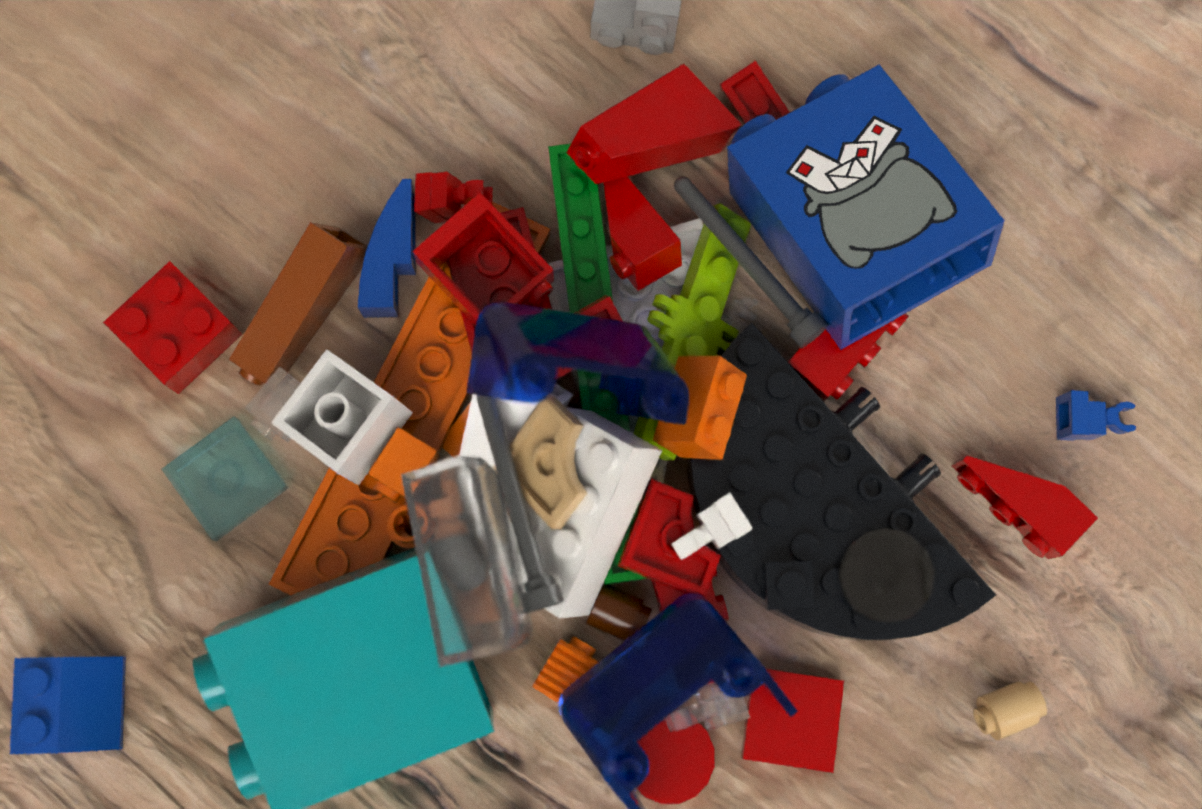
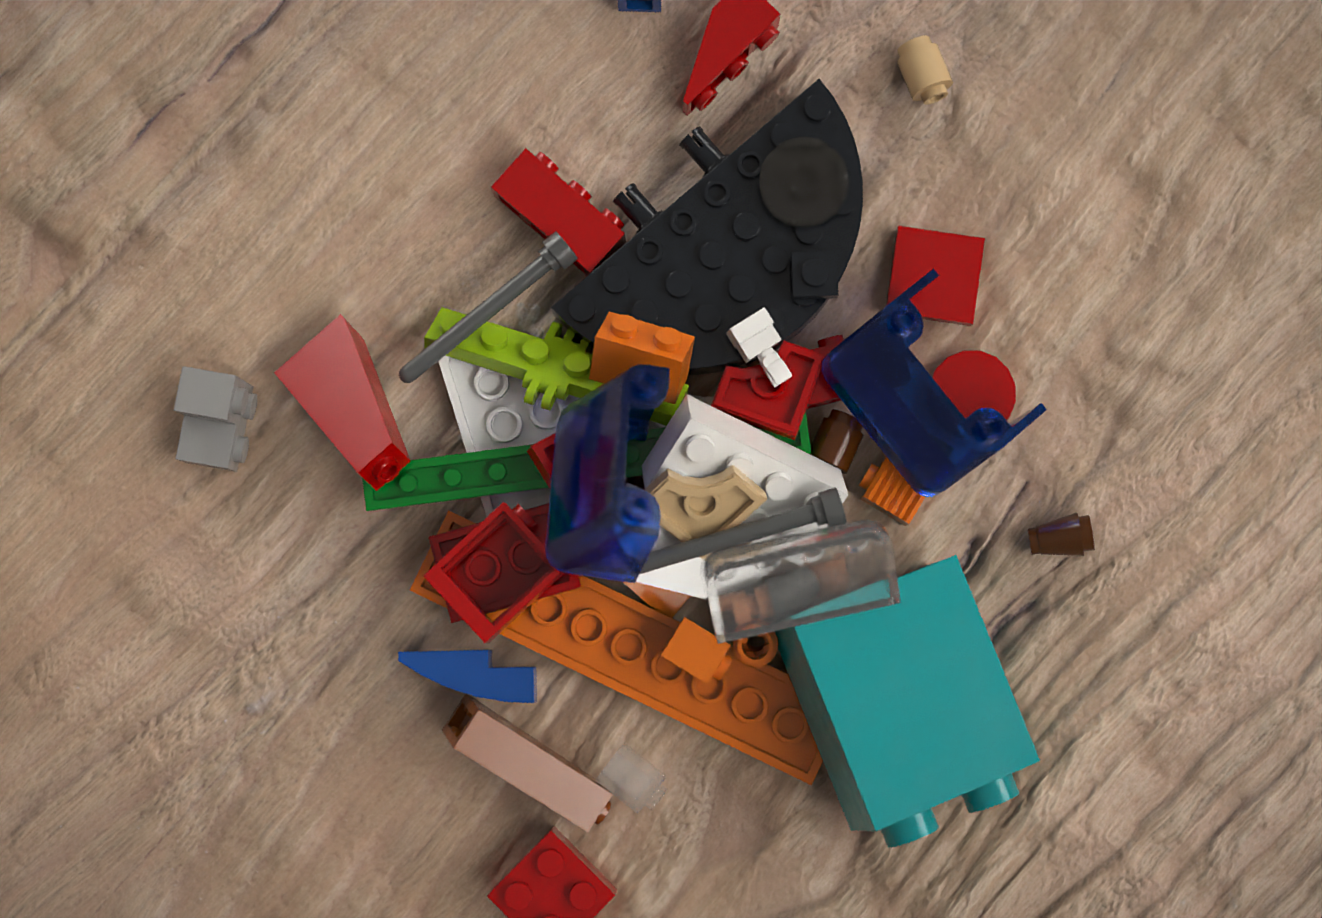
camera: 80 degrees left, 5 degrees up
(225, 478) = (704, 835): clear light blue tile -> none
(341, 417) = (650, 712): white brick -> none
(441, 195) = (413, 619): red piece -> none
(640, 238) = (463, 418): red slope -> none
(712, 708) = (930, 349): clear piece -> none
(753, 94) = (319, 295): red plate -> none
(861, 203) = (429, 197): blue brick -> none

